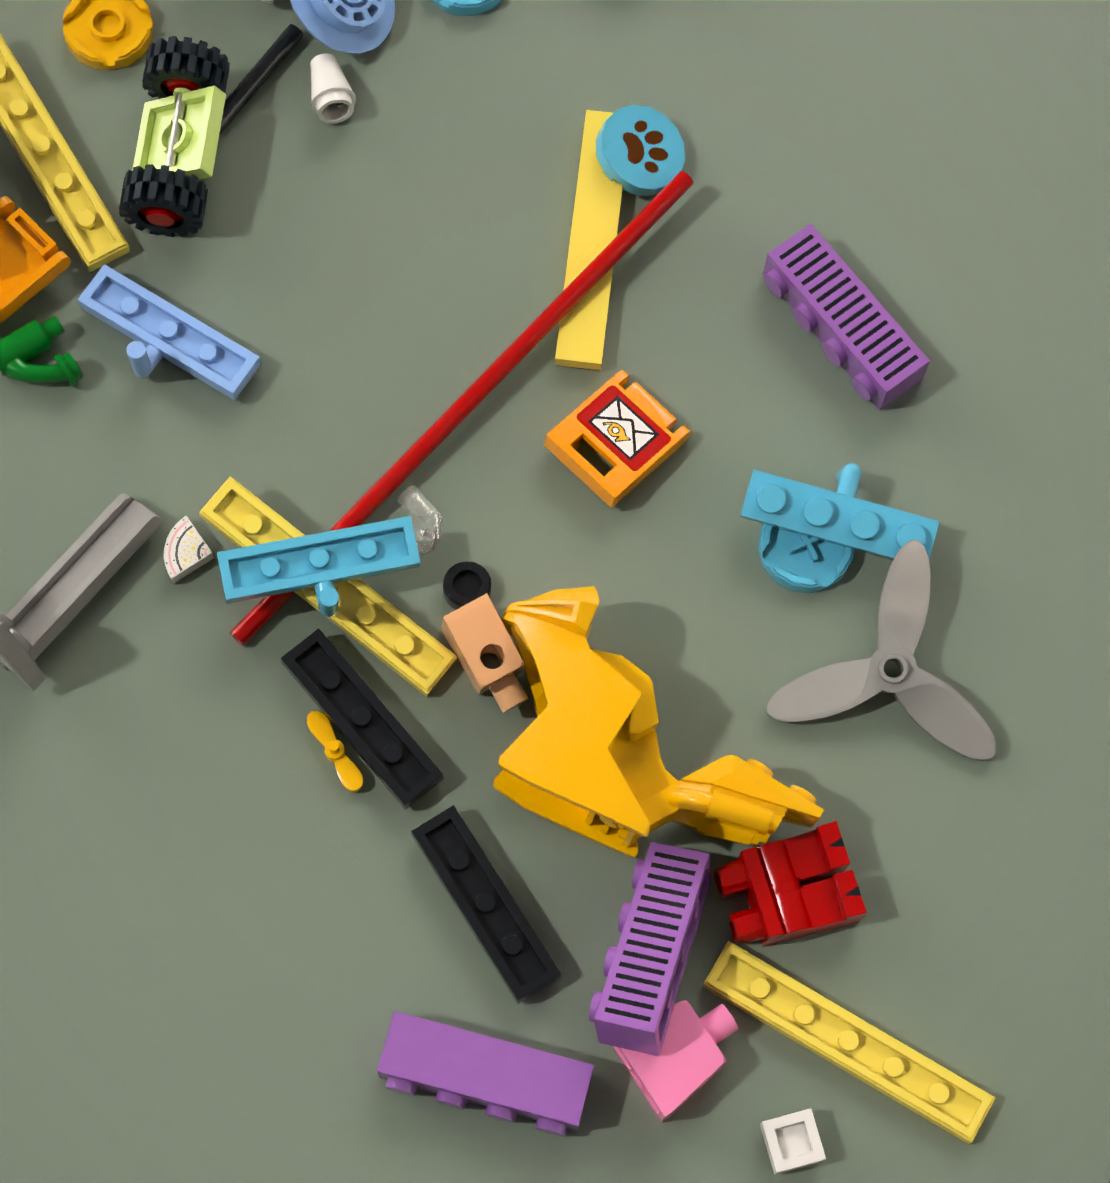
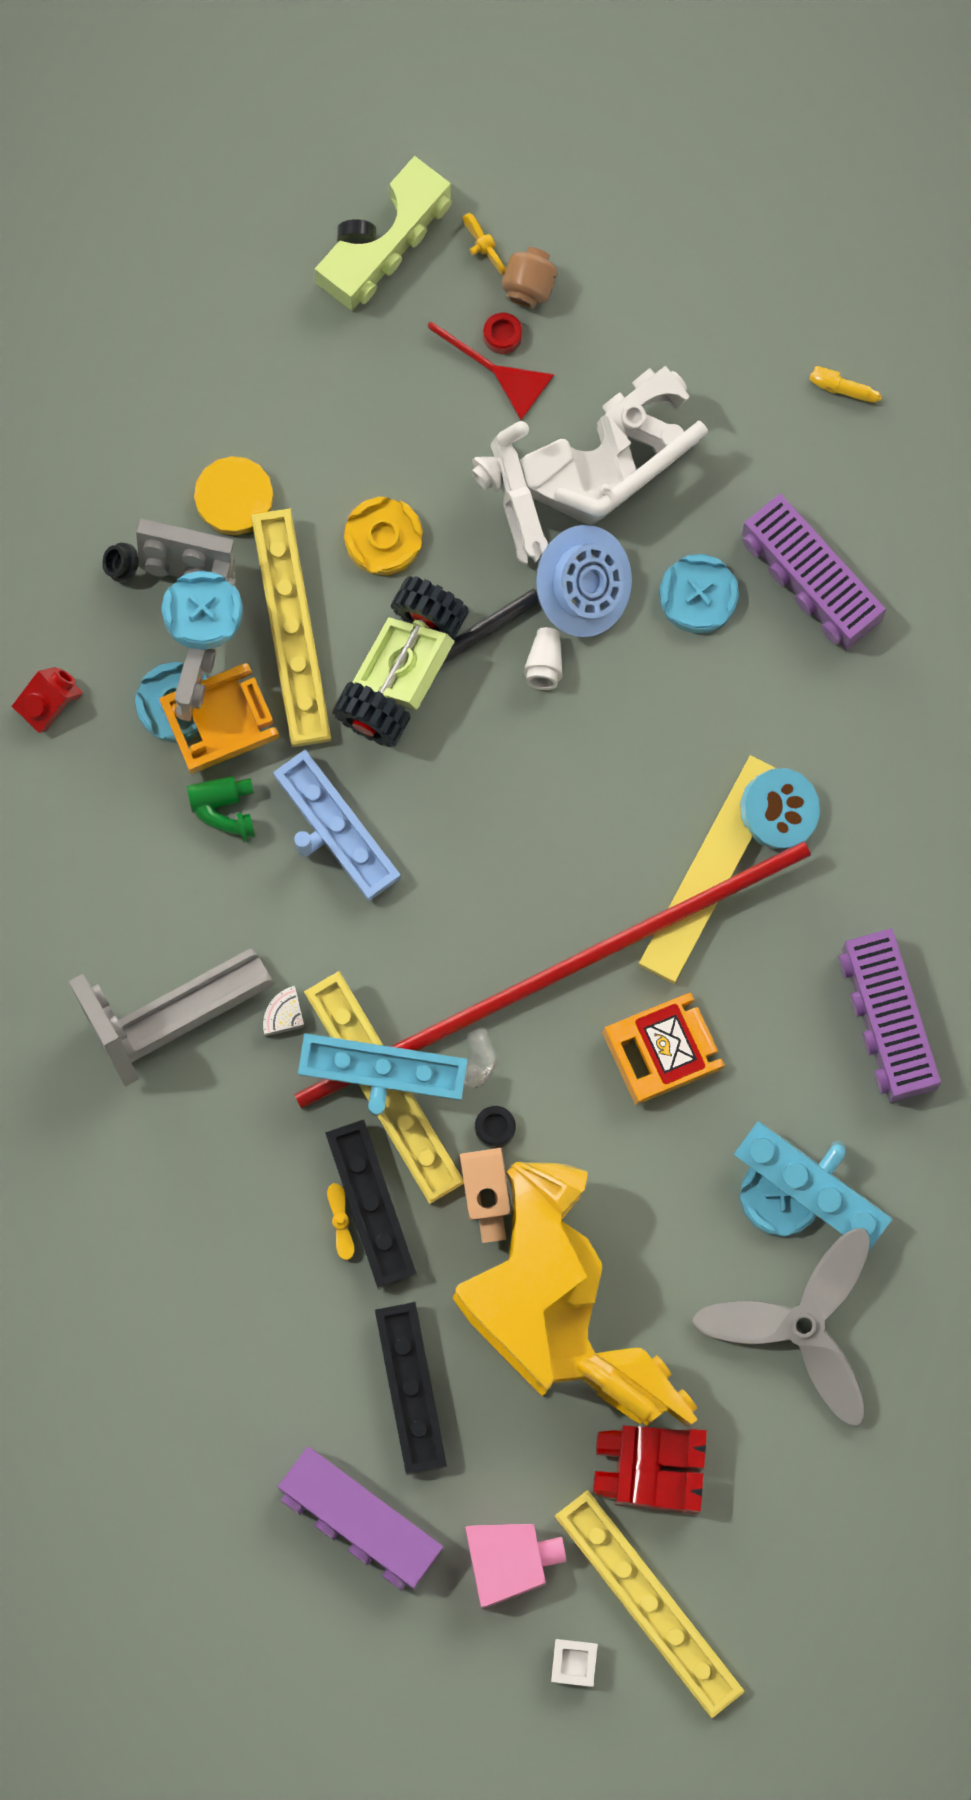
camera: 25 degrees right, 5 degrees up
(652, 948) = (523, 1474): medium lavender brick -> none

